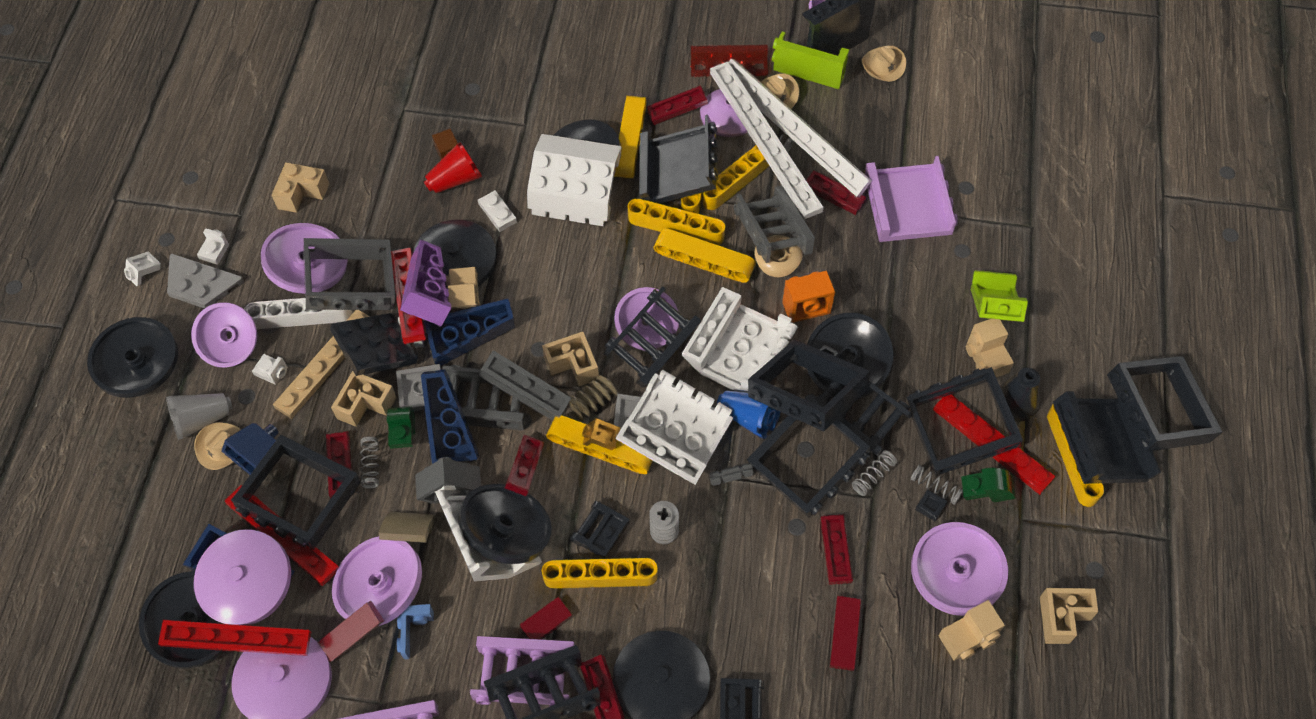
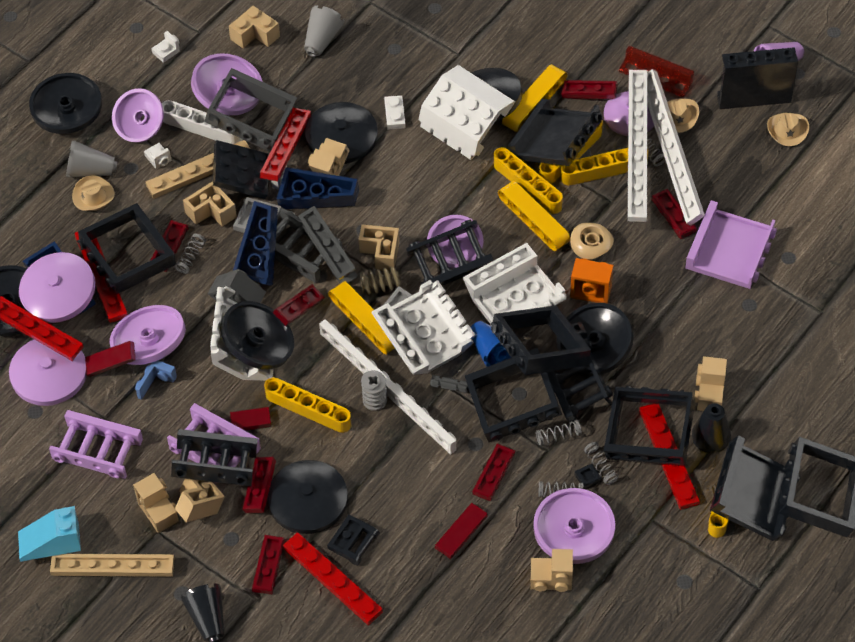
camera: 30 degrees right, 5 degrees down
(139, 266) = (106, 38): white bracket -> none
(198, 282) = (141, 69): light grey wing -> none
(250, 445) = (111, 200): dark blue torso -> none
(372, 157) = (321, 29): none -> light grey cone
(400, 427) = (226, 237): dark green brick -> none
(406, 526) = (189, 308): dark tan slope -> none
(425, 285) = (298, 143): medium lavender wedge -> none
(444, 142) = (384, 45): reddish brown brick -> none
(452, 171) = (377, 65): red cone -> none
(601, 434) = (364, 306): pearl gold bracket -> none
(606, 533) = (330, 380): black plate -> none
(701, 518) = (394, 390): none -> white plate
(786, 212) = (617, 211): dark grey fence -> none
(809, 62) = (719, 102): lime panel -> none
(894, 538) = (541, 487): none -> light grey piece
(991, 483) = (642, 479): dark green brick -> none
(997, 297) = (743, 347): lime panel -> none
(1062, 608) = (633, 589): tan brick -> none

